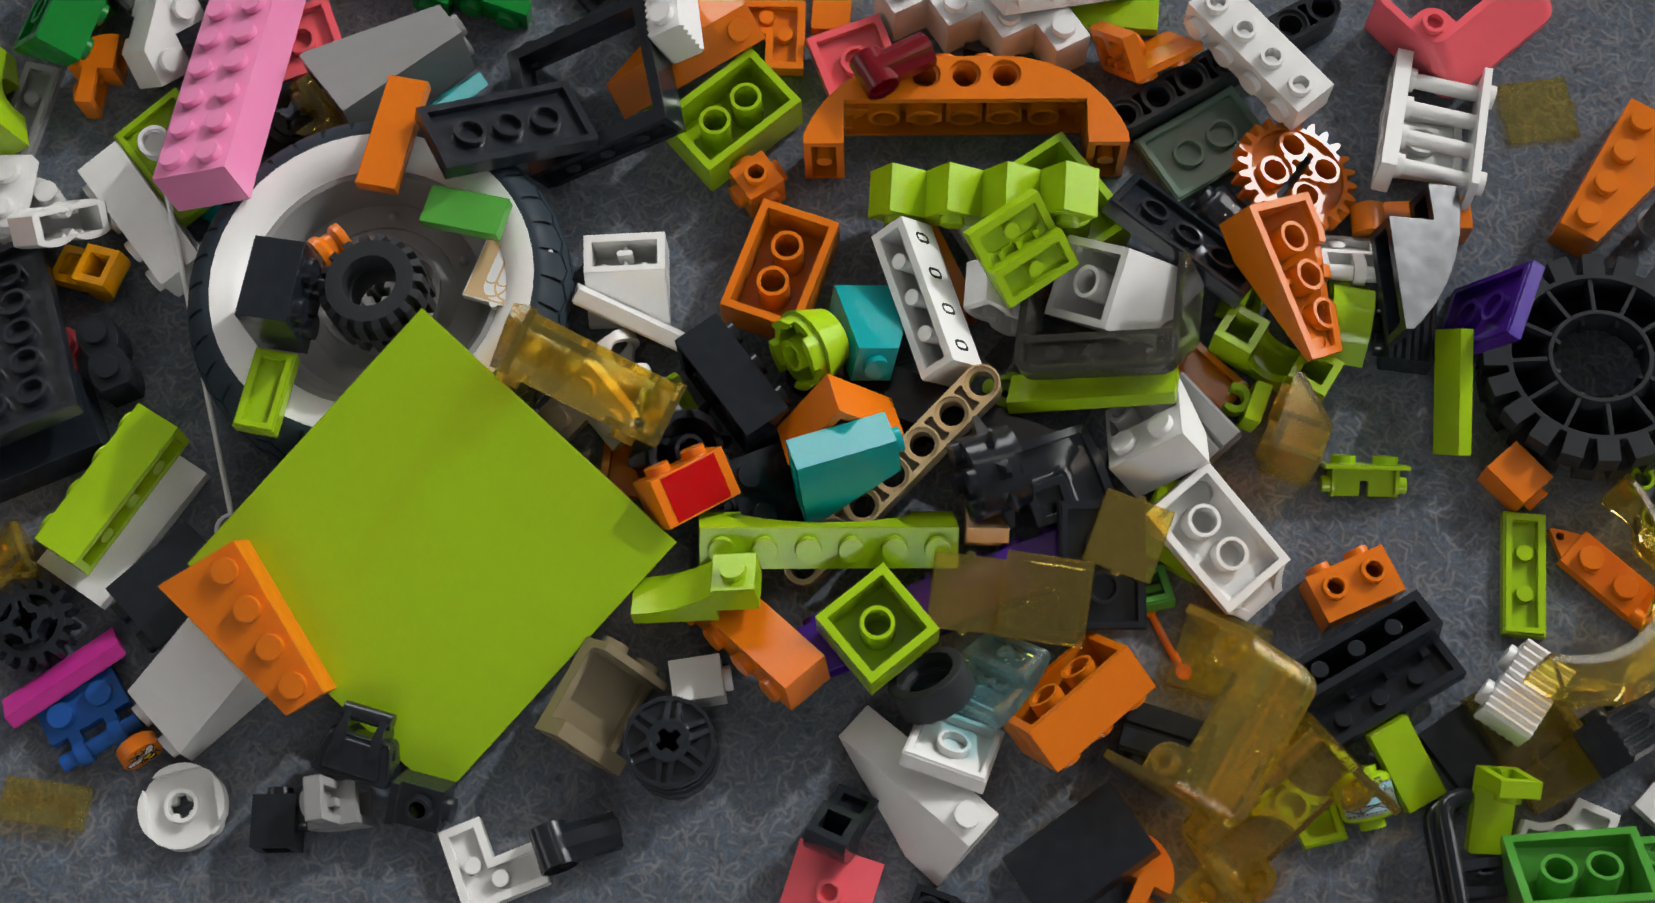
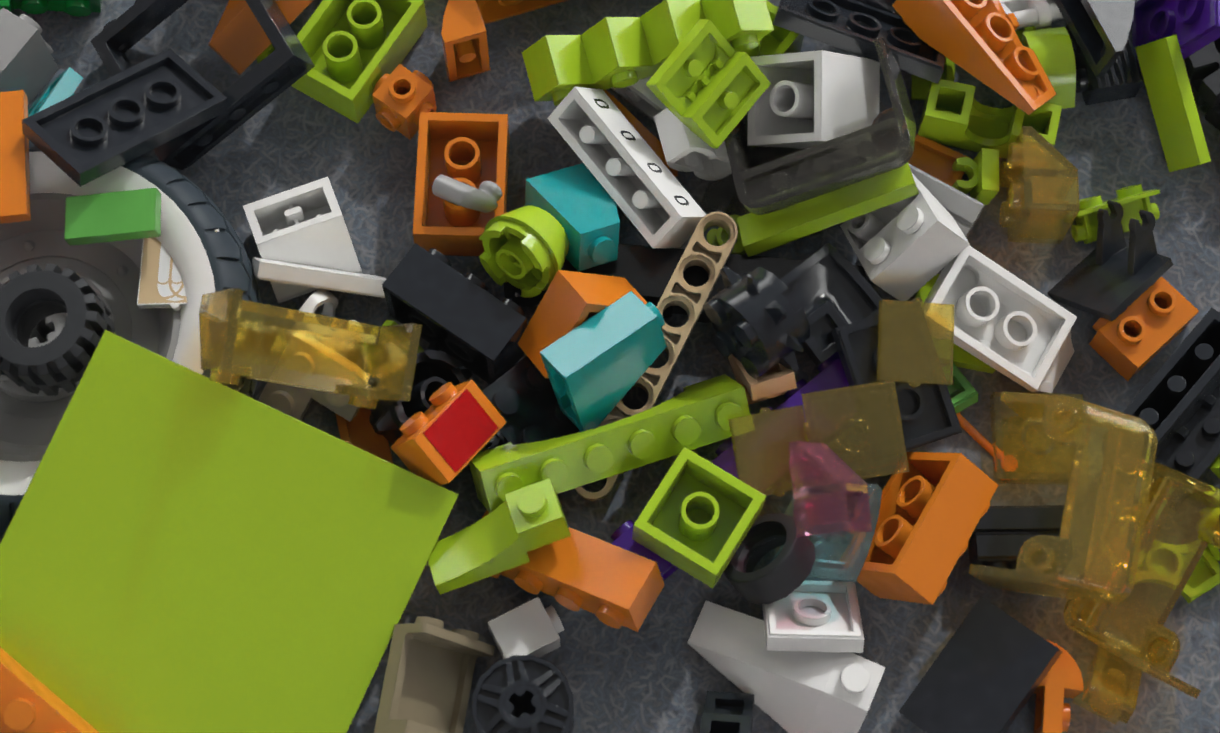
camera: 25 degrees left, 0 degrees up
(776, 285) = (464, 195): none -> light grey arm
(997, 643) = (826, 493): none -> clear pink slope
(1344, 529) = (1112, 272): none -> black plate

